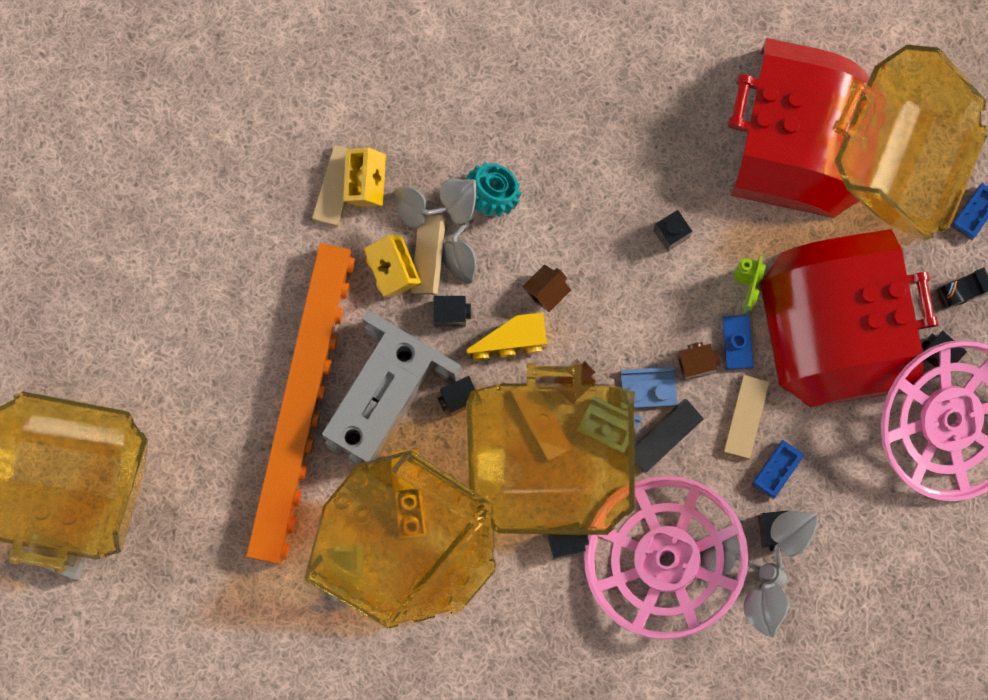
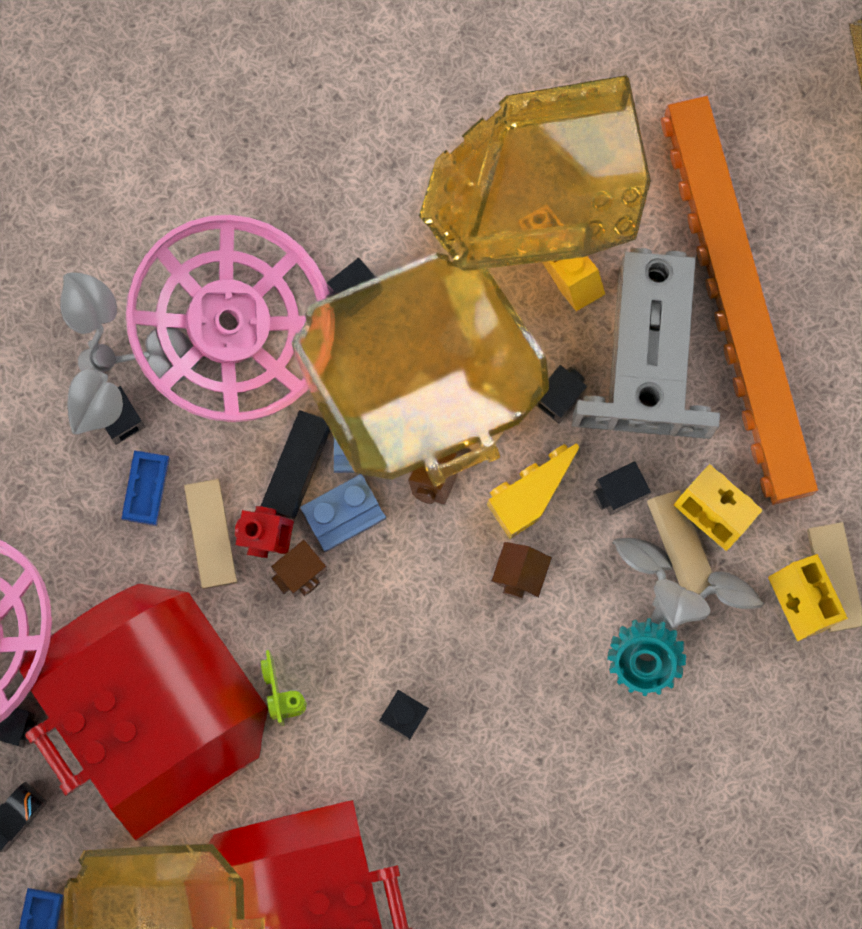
camera: 150 degrees right, 0 degrees up
(711, 396) = (263, 532): none -> red brick
(737, 342) = (261, 619): blue plate -> none

